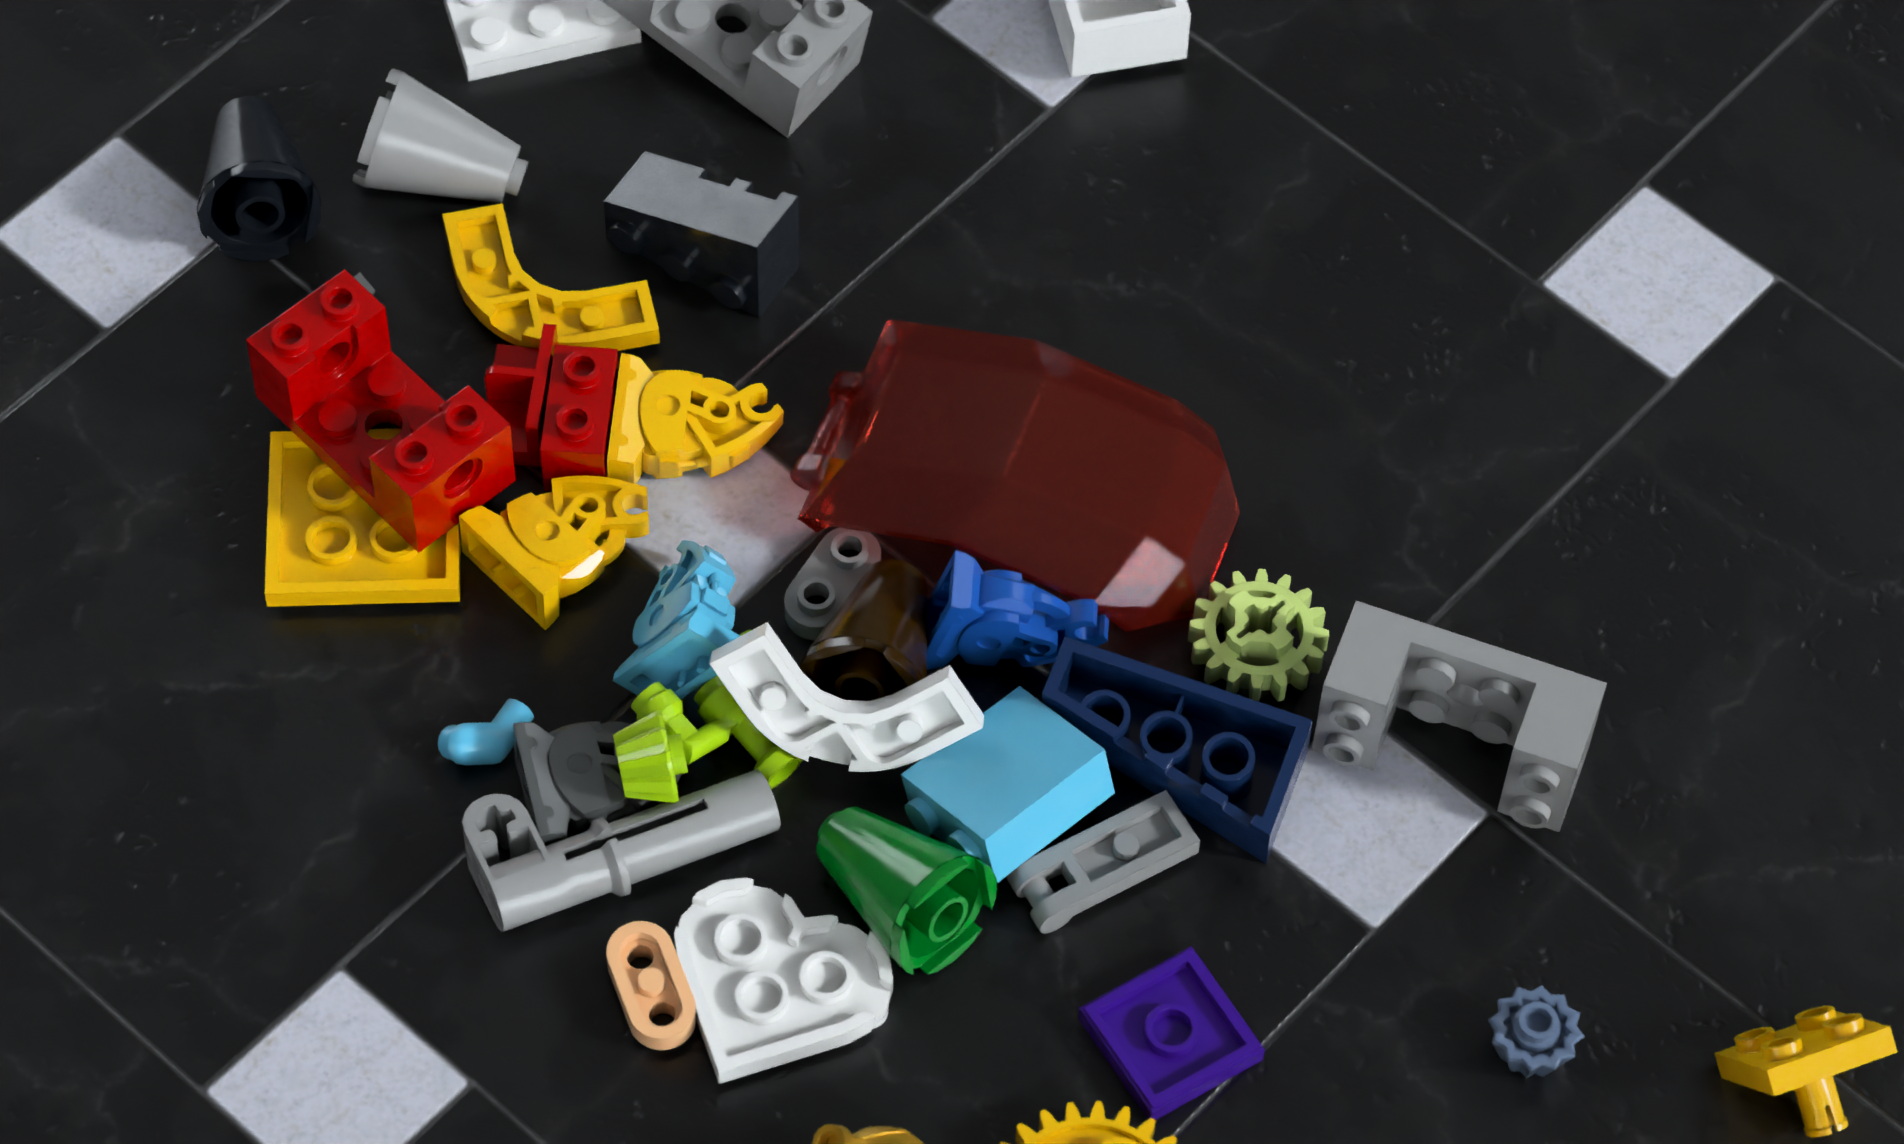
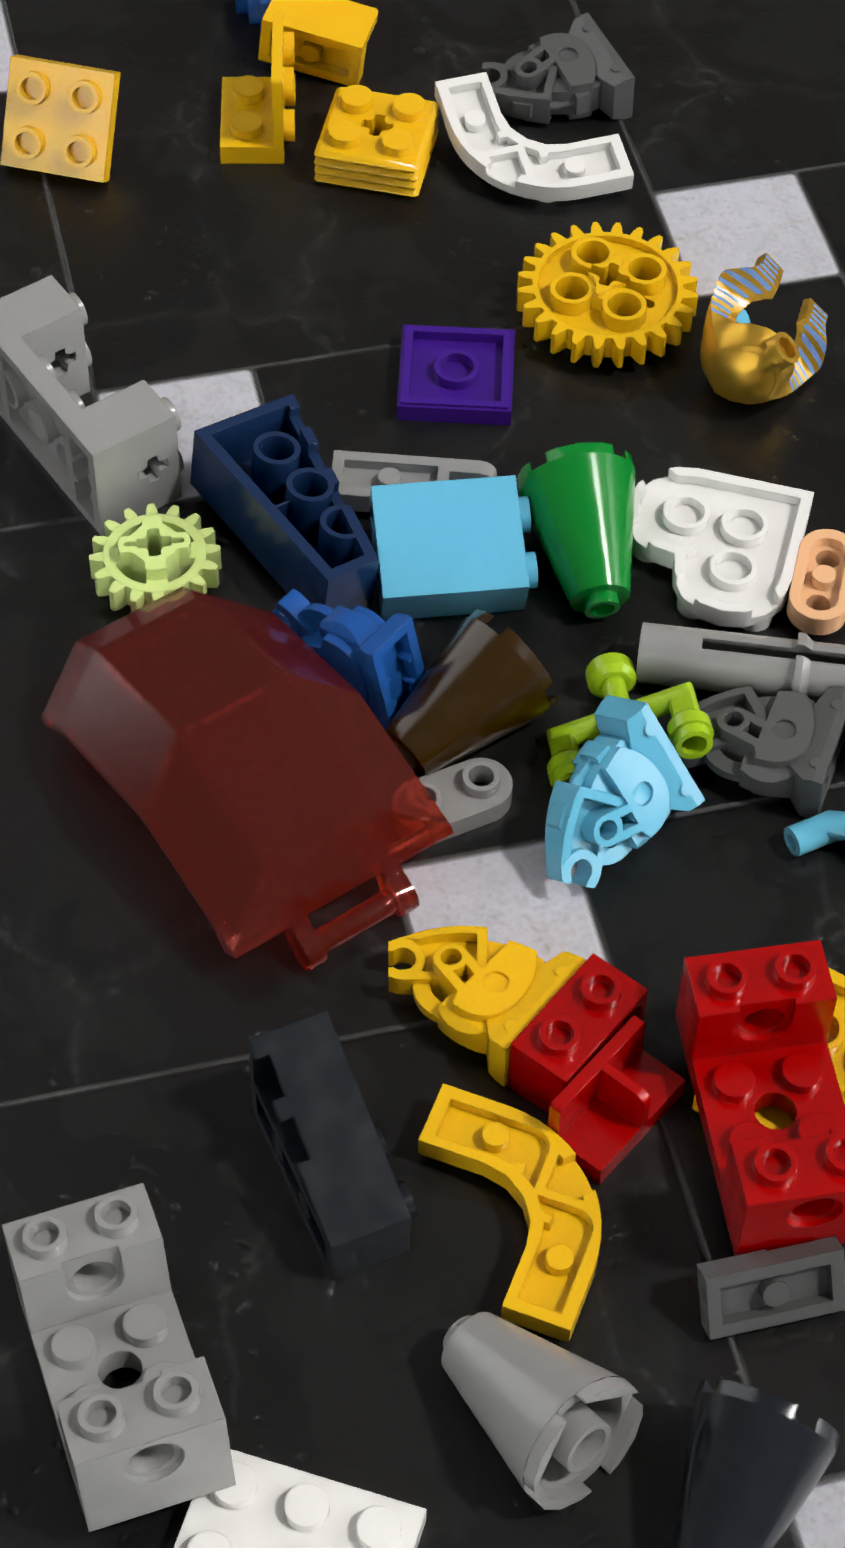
camera: 145 degrees left, 5 degrees down
(554, 540) = (656, 935): yellow piece -> none
(650, 759) = (733, 674): lime piece -> none
(841, 731) = (585, 655): white plate -> none
(1535, 1031) = (215, 234): sand blue piece -> none

